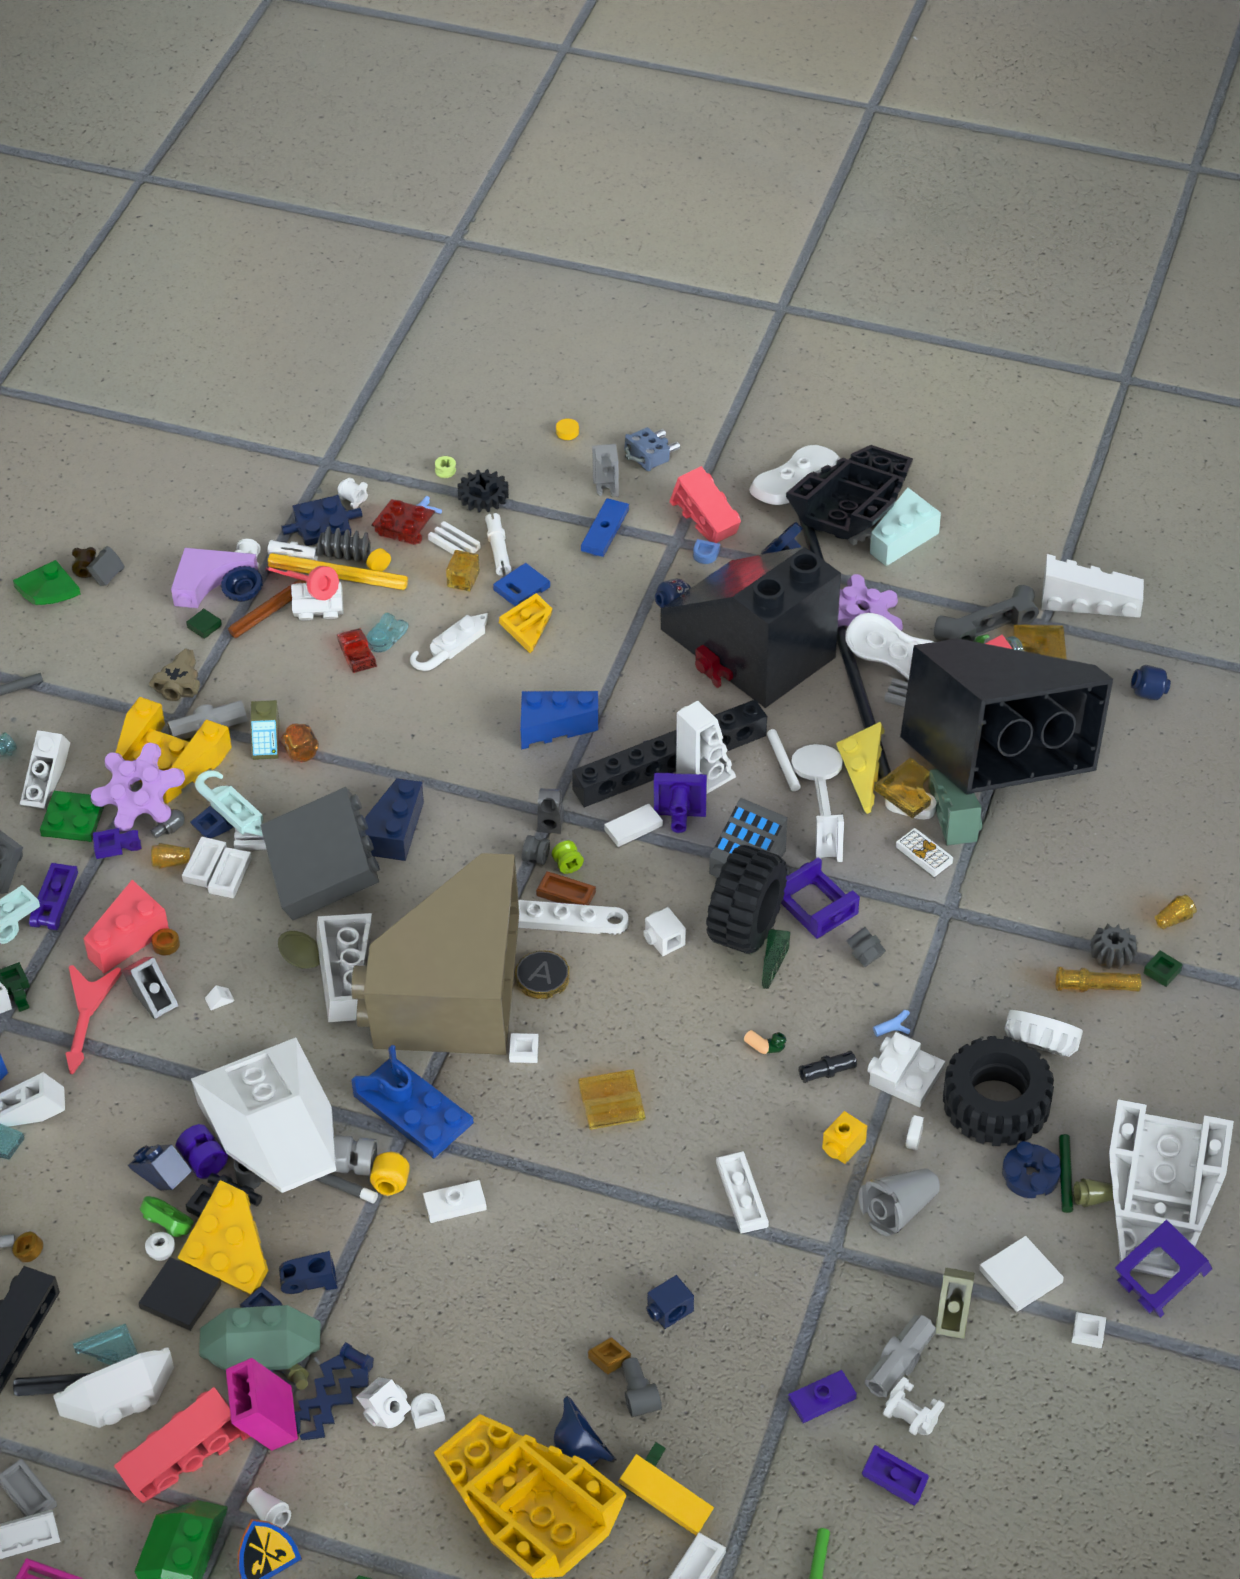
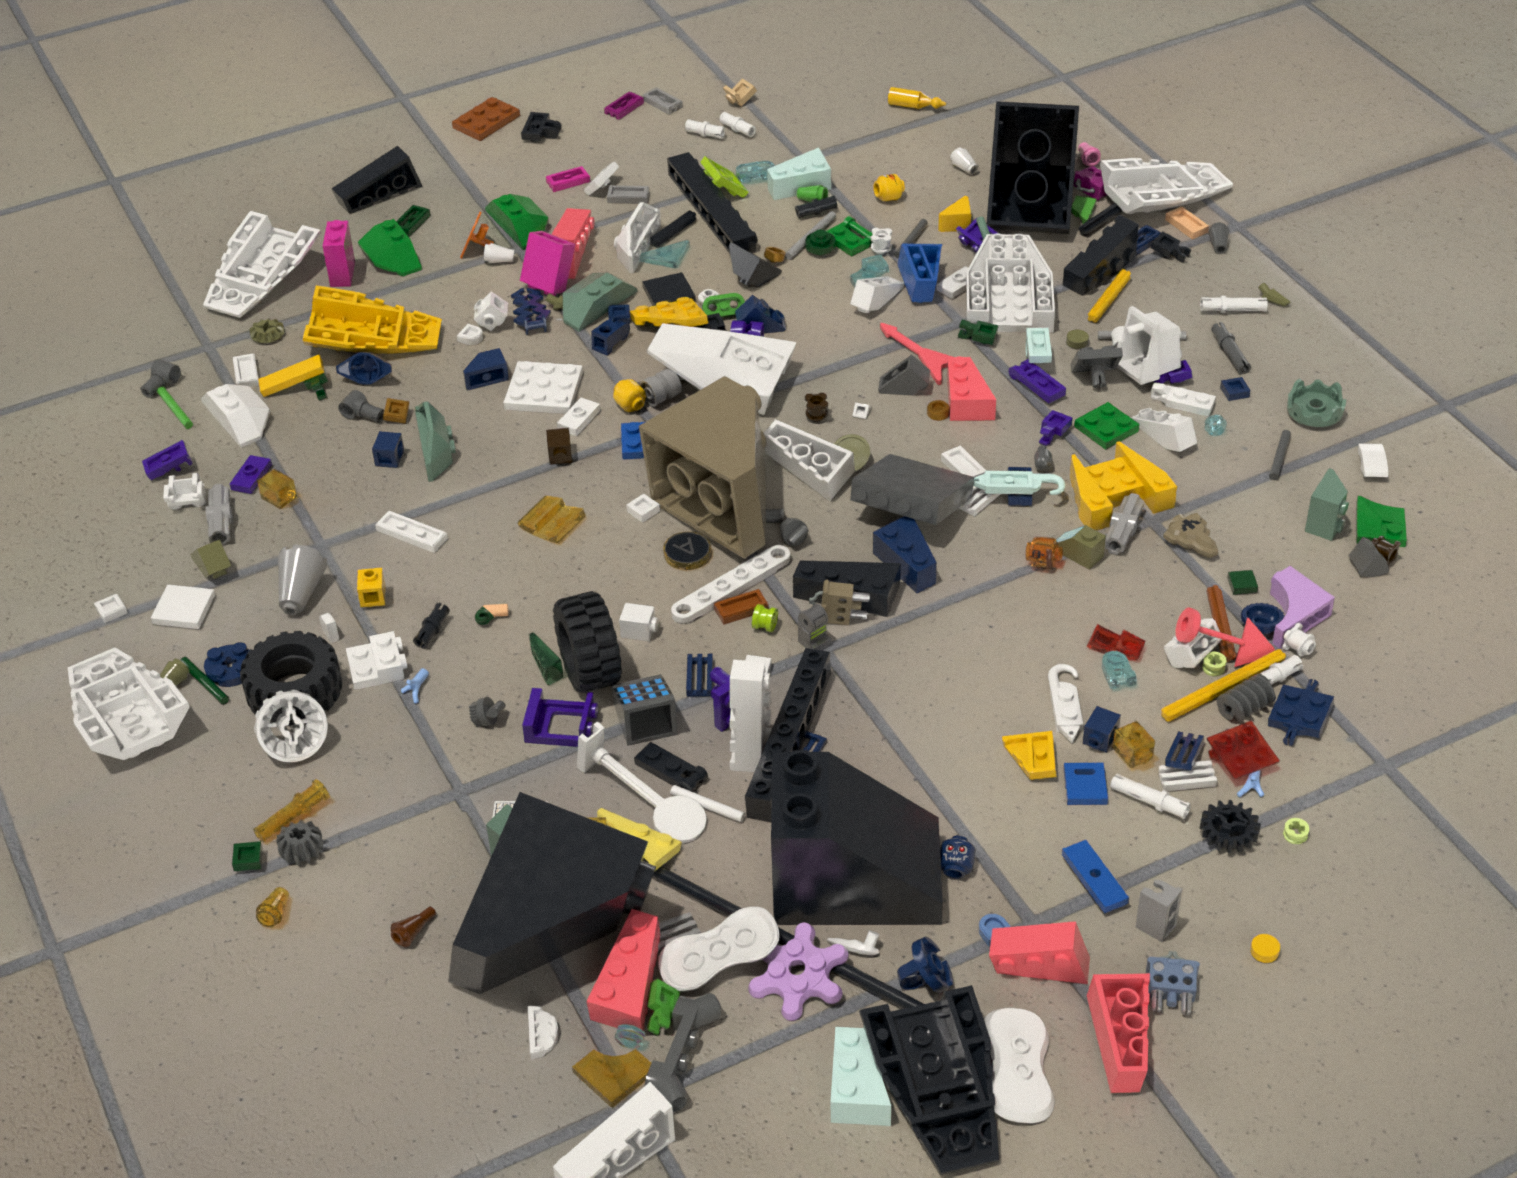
camera: 135 degrees right, 5 degrees down
(67, 606) = (1327, 507): none -> sand green slope
(72, 1238) = (751, 267): none -> black slope
(148, 798) = (1089, 440): lavender plate -> none
(169, 855) = (1011, 441): clear yellow cone -> none
(203, 862) = (987, 457): white tile -> none
(259, 1016) = (816, 406): none -> dark brown brick
(352, 492) = (1316, 744): white brick -> none
(378, 560) = (1207, 709): yellow tile -> none
(434, 545) = (1186, 741): none -> dark blue tile
(442, 1269) = (543, 387): none -> white plate
(464, 599) = (1101, 728): none -> dark blue brick
(465, 821) = (875, 578): none -> black wedge
(472, 1330) = (486, 369): none -> dark blue slope
(505, 813) = (838, 602): none -> dark tan piece
(518, 1168) = (559, 446): none -> dark brown brick
(535, 850) = (791, 606): dark grey wheel -> none
(557, 714) = (907, 697): blue wedge -> none
(621, 1272) = (434, 440): none -> sand green wedge
(666, 855) = (699, 660): none -> dark blue tile
(717, 439) = (1121, 1026): none -> coral wedge
(758, 1503) = (238, 411): none -> white wedge
(779, 799) = (670, 767): none -> black plate
(819, 1340) = (277, 488): none -> clear yellow brick
(1089, 824) = (406, 930): none -> reddish brown cone
(1150, 682) = (474, 1098): dark blue head -> none
(1180, 1250) = (79, 652): dark purple window -> none

